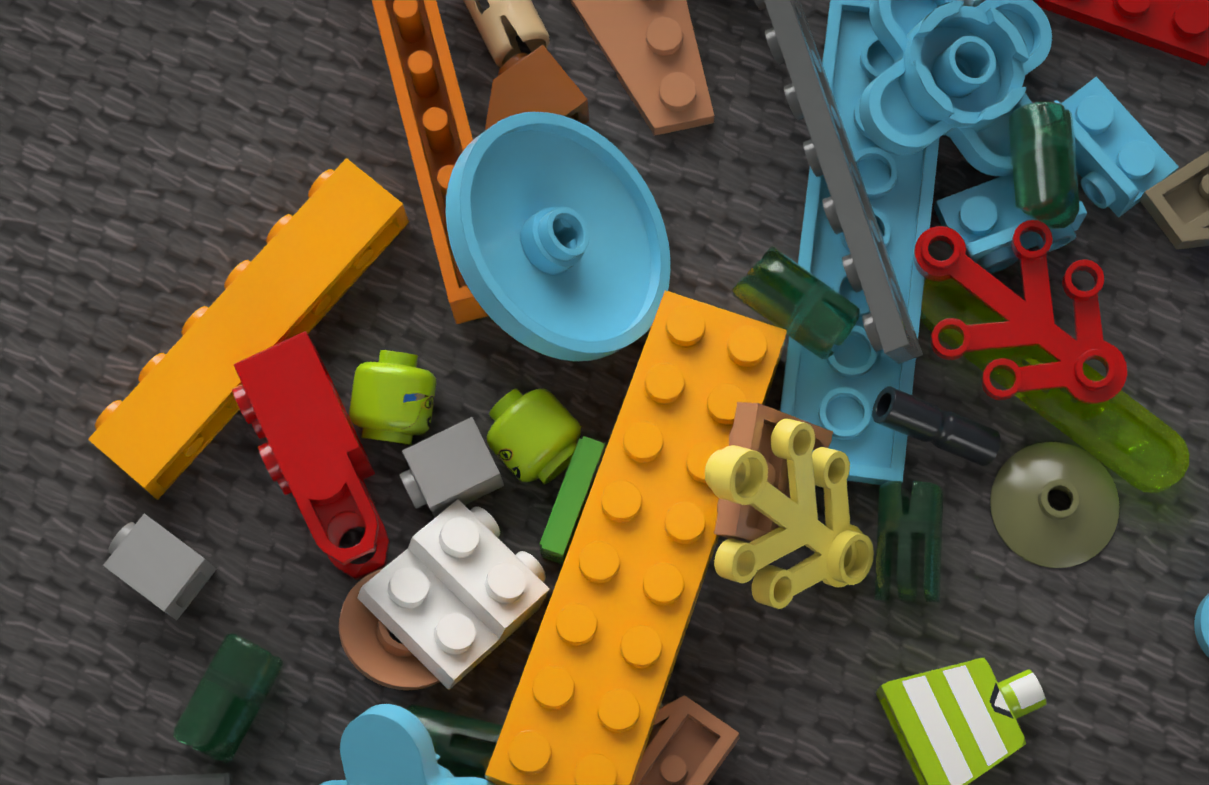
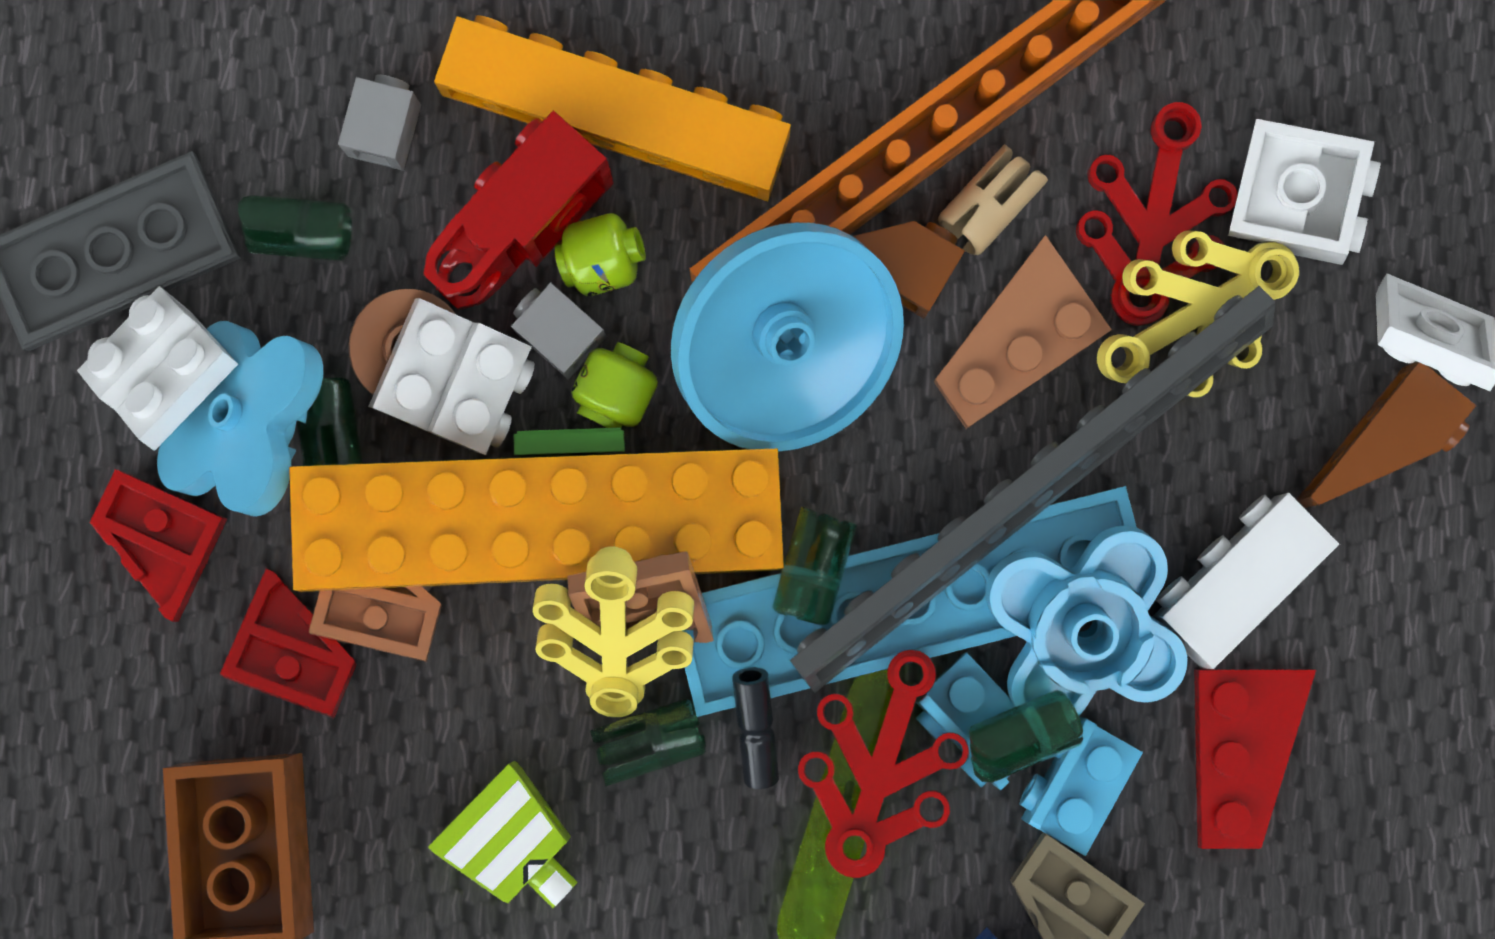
camera: 60 degrees right, 10 degrees up
(1035, 528) = (743, 823): olive dish -> none

